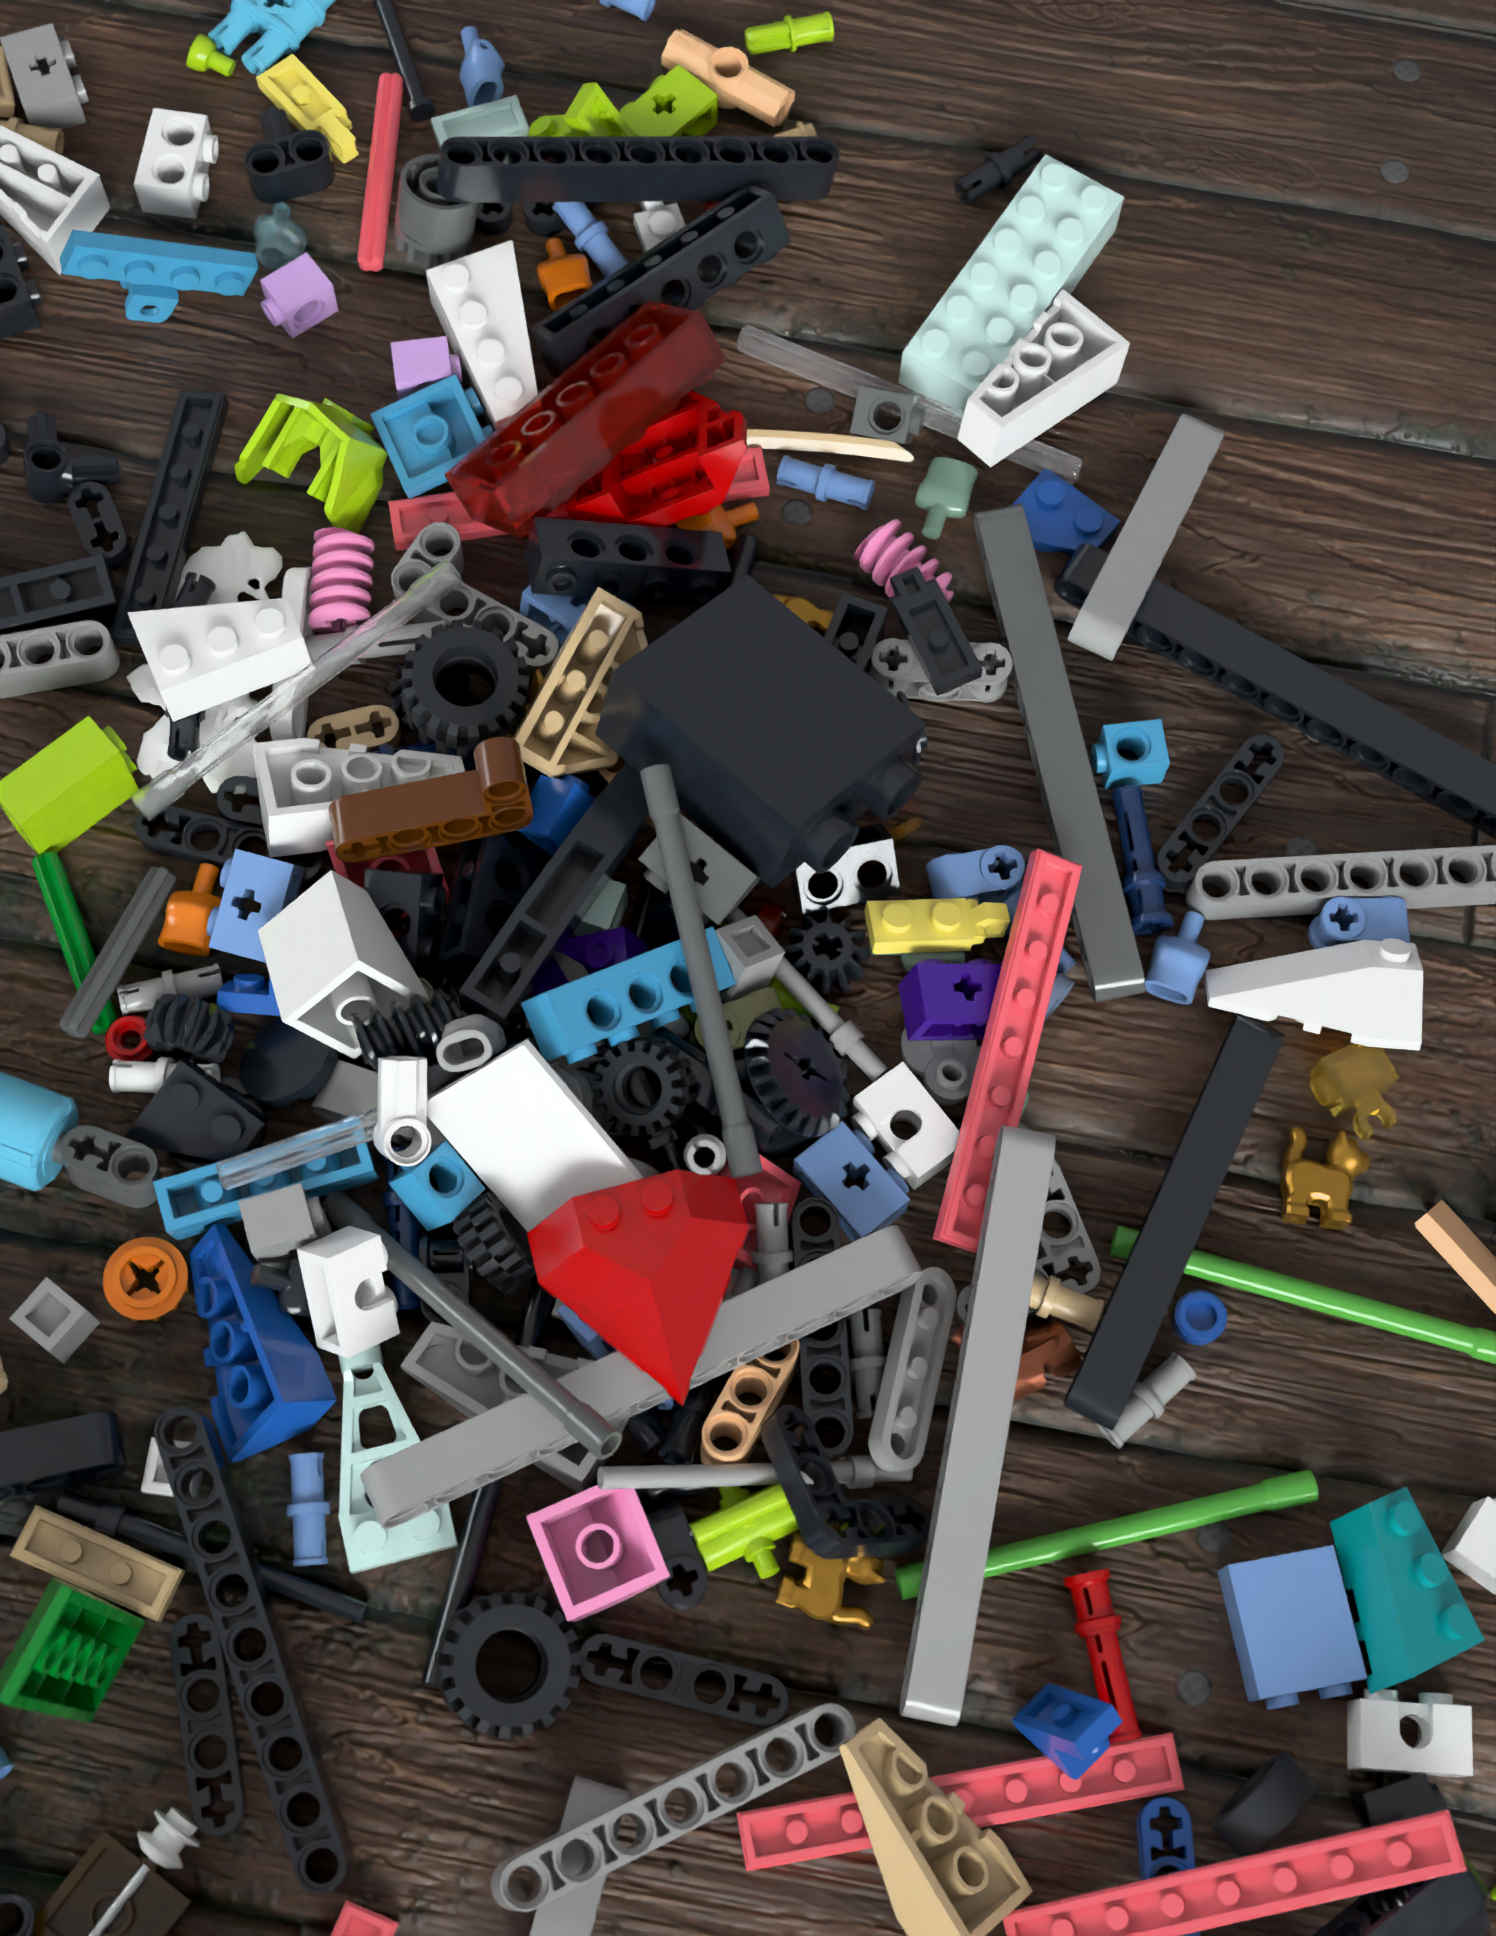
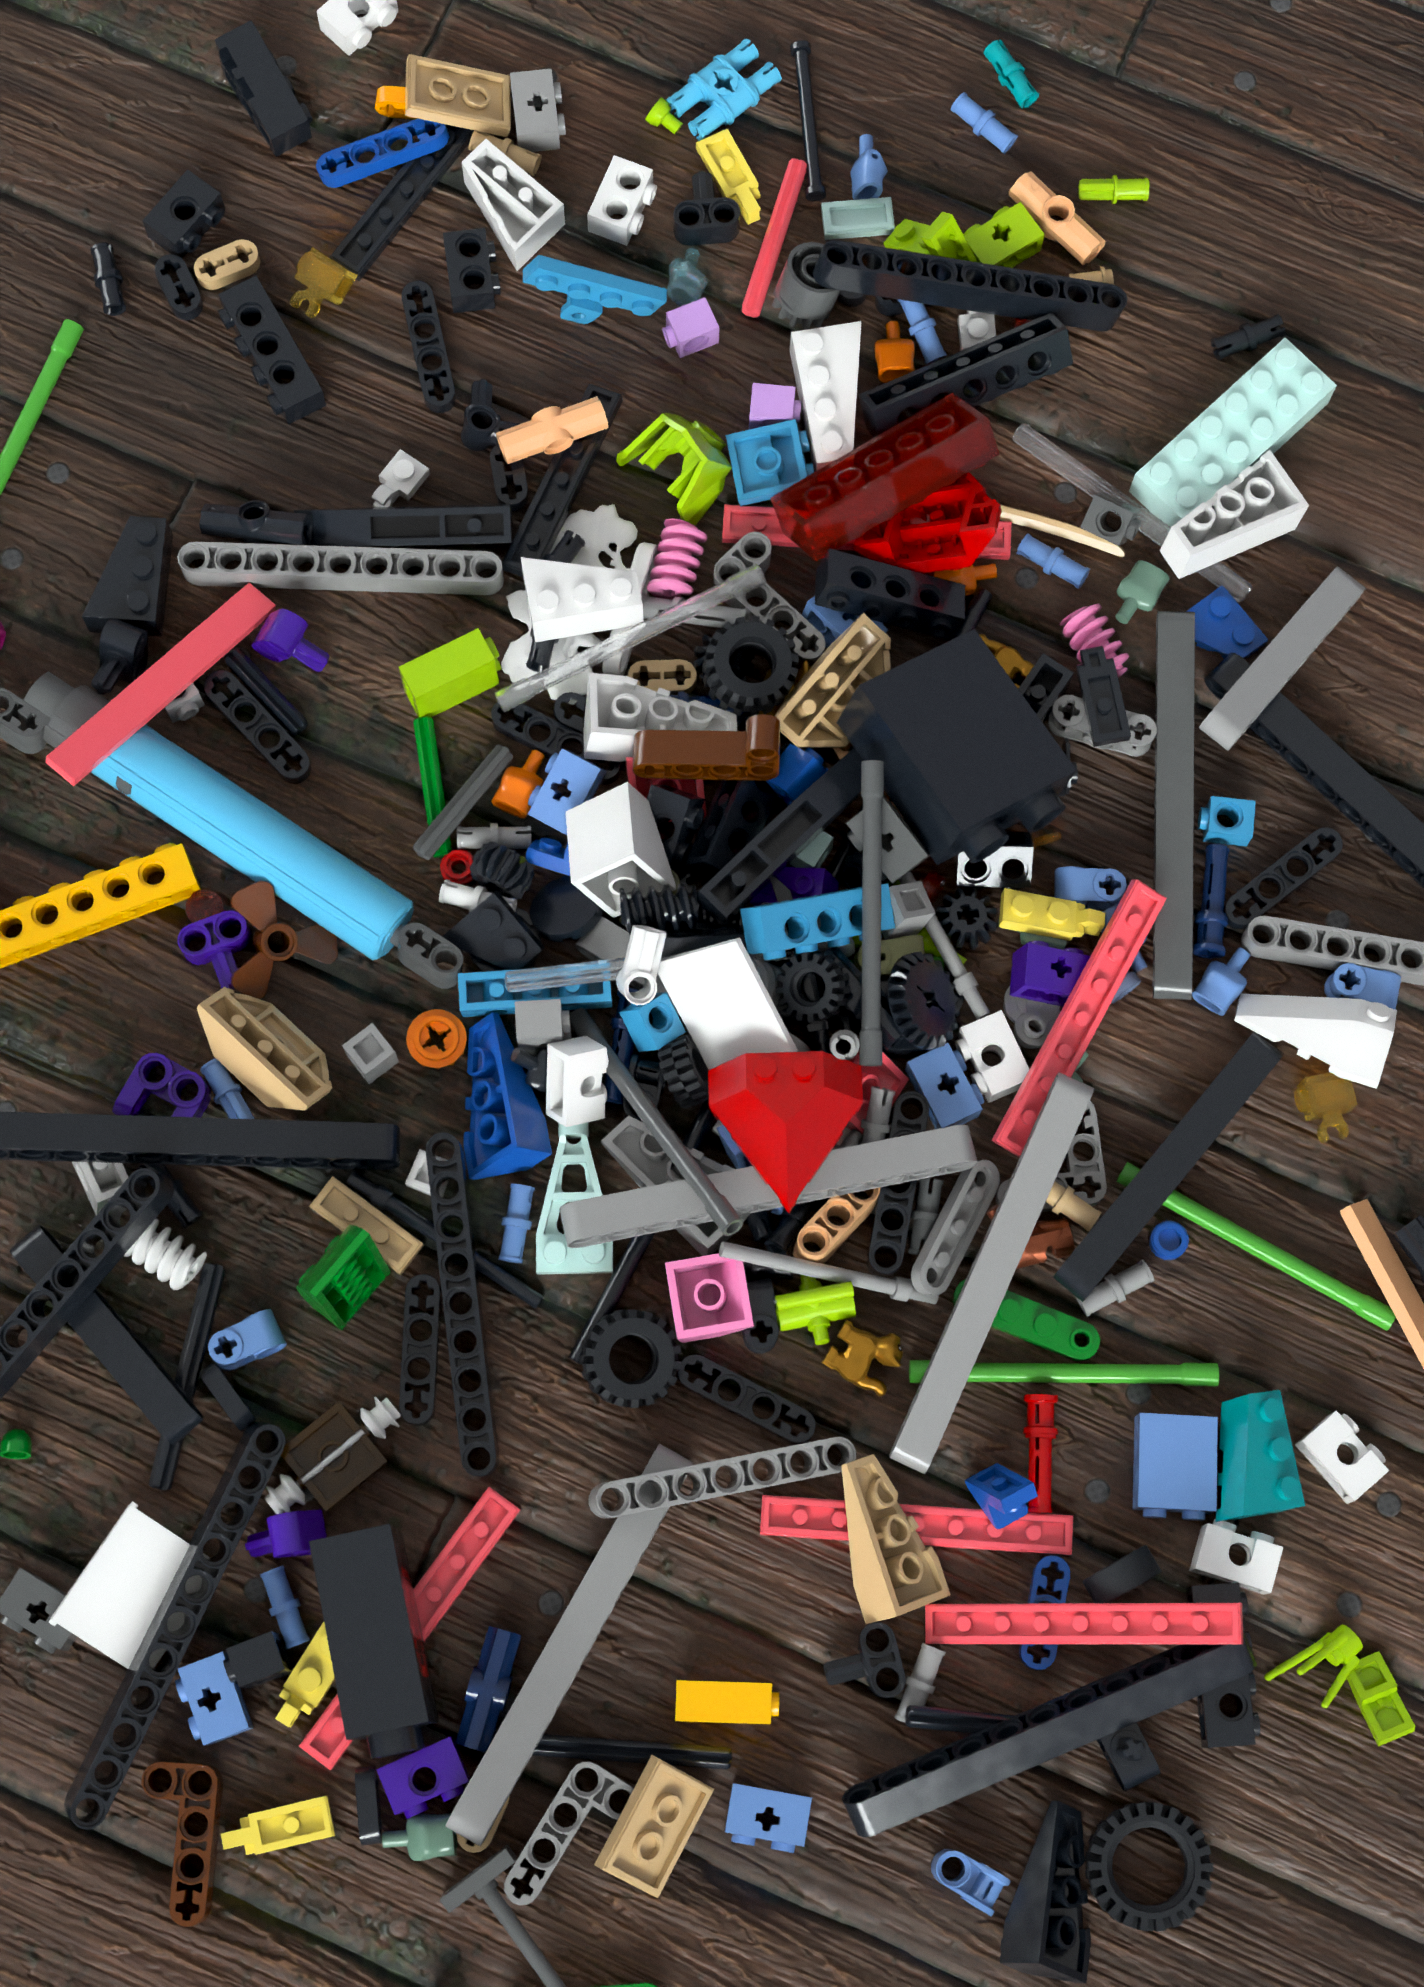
camera: 15 degrees right, 5 degrees up
(141, 452) = (552, 430): none -> light nougat piece
(469, 1042) = (698, 929): light grey piece -> none
(796, 1448) = (860, 1260): black beam -> none
(1064, 1476) = (1042, 1326): none -> green plate
(1320, 1185) = (1280, 1167): pearl gold animal -> none

